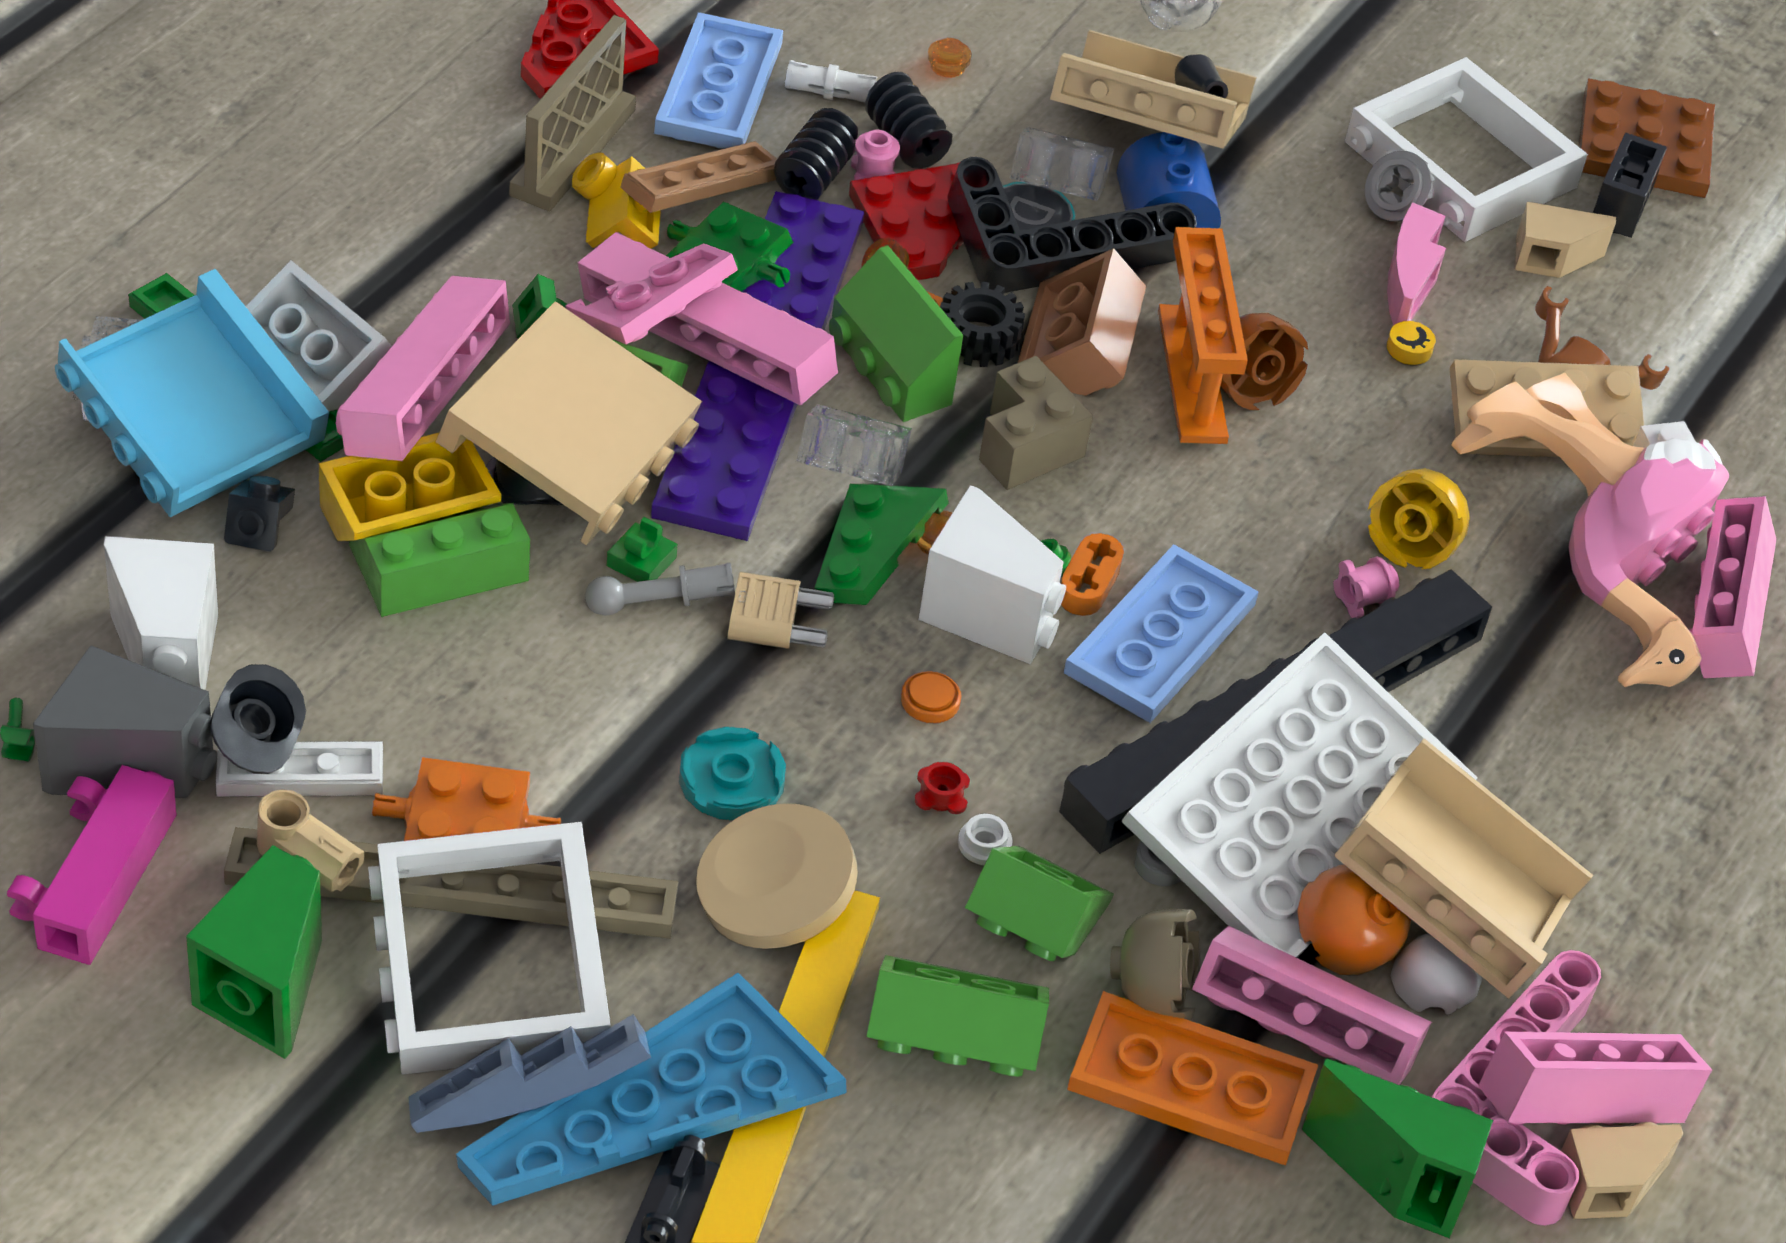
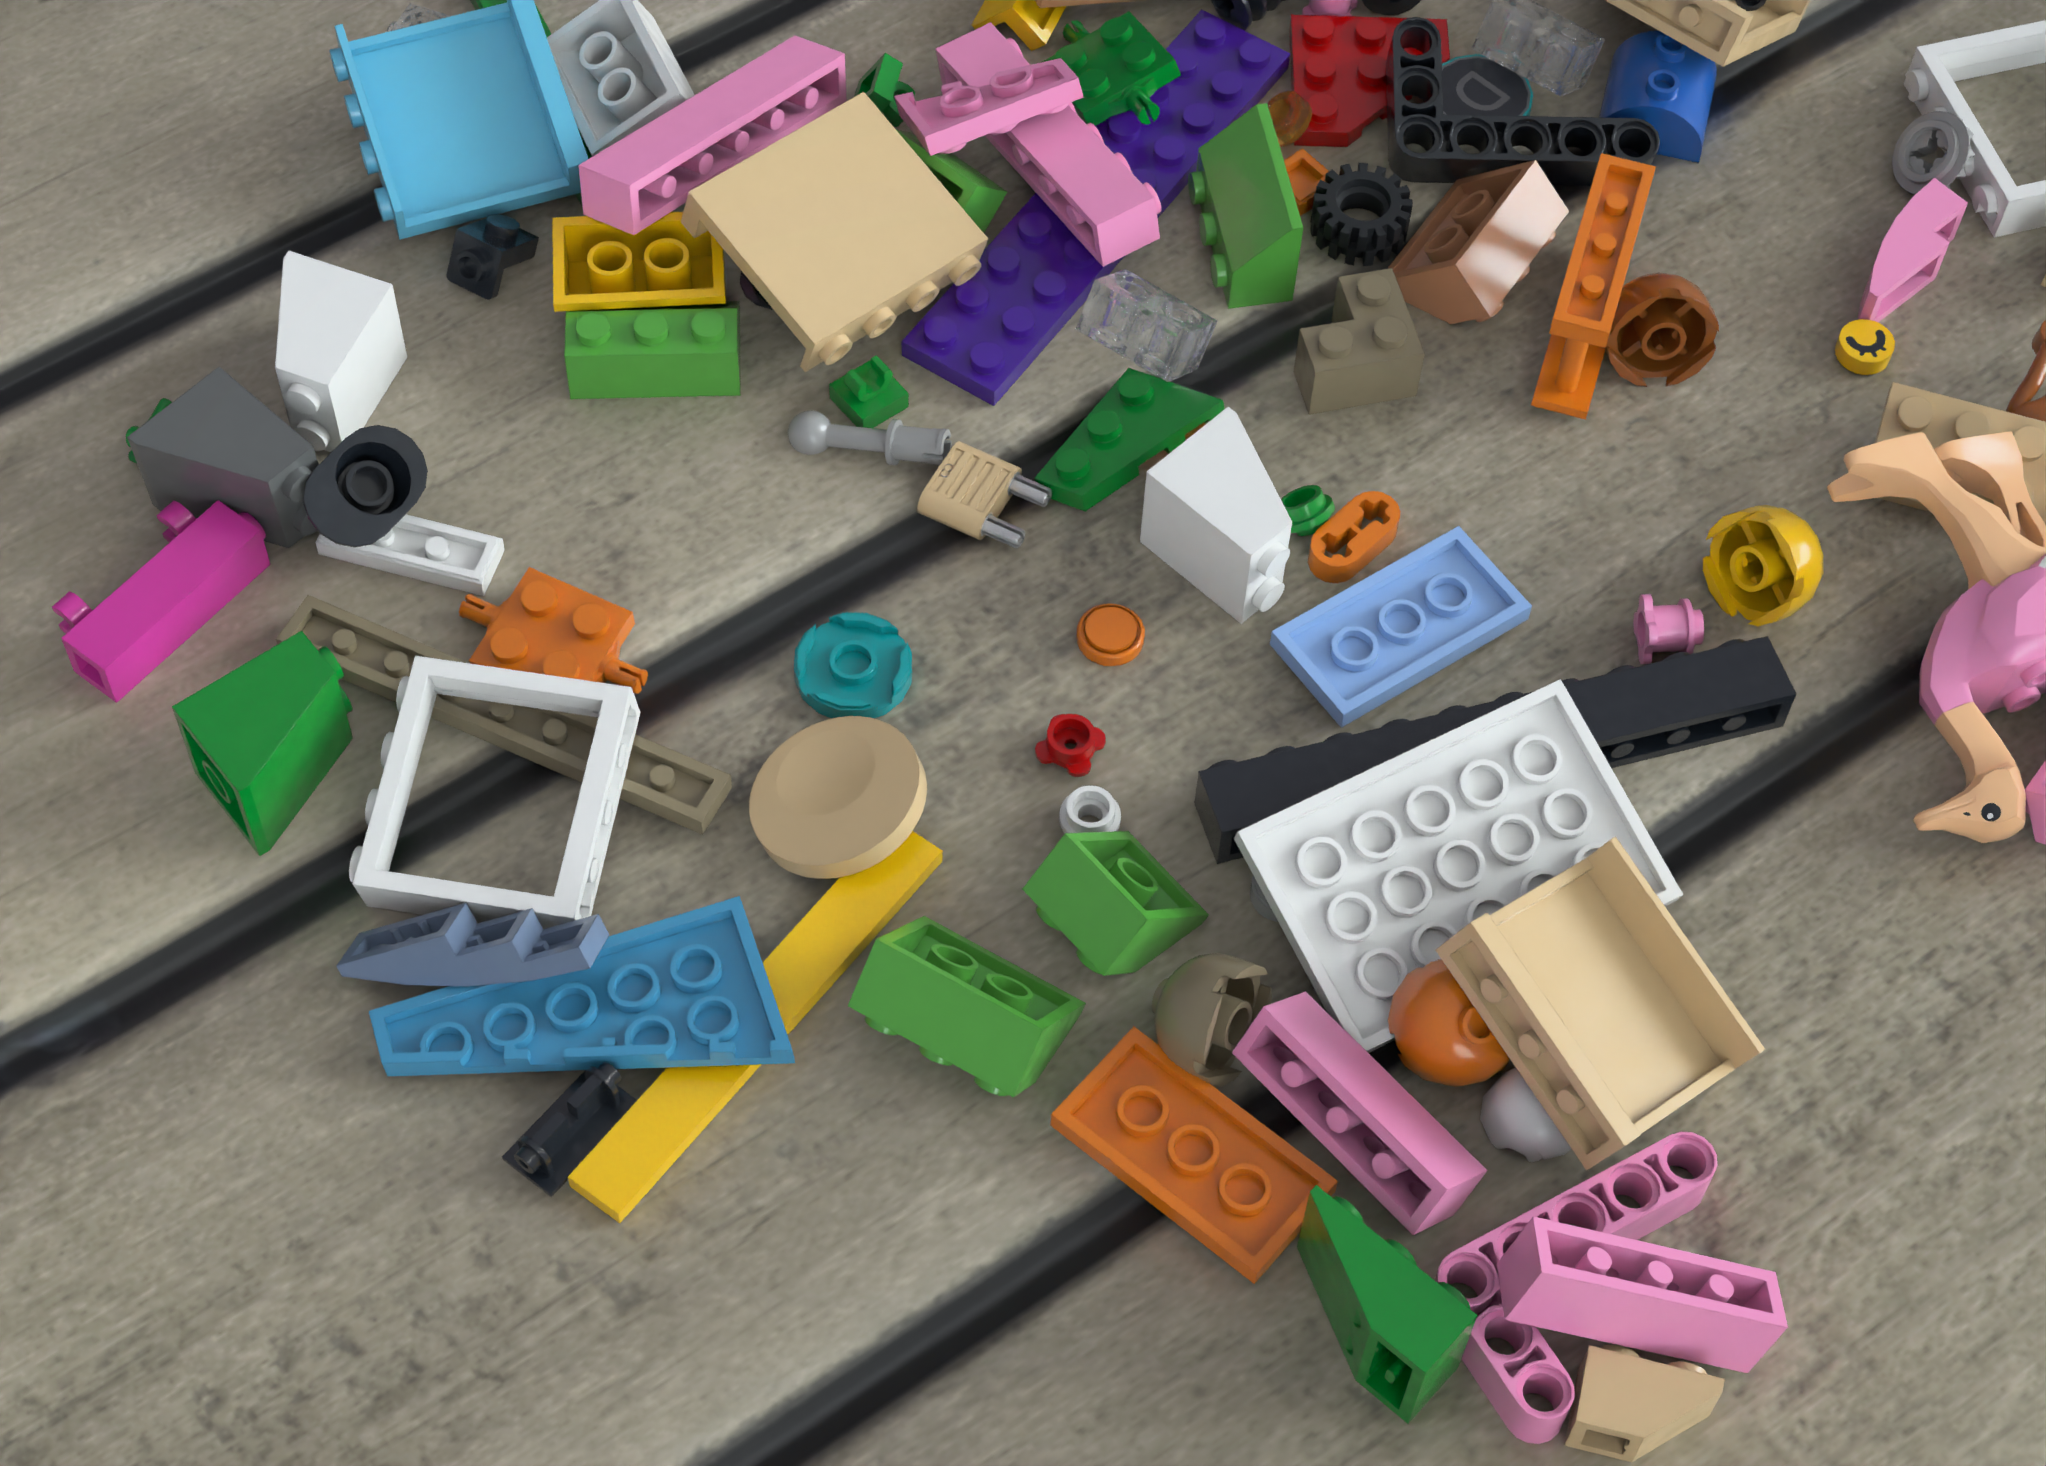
camera: 25 degrees right, 10 degrees up
(289, 826) = (359, 632): tan piece -> none

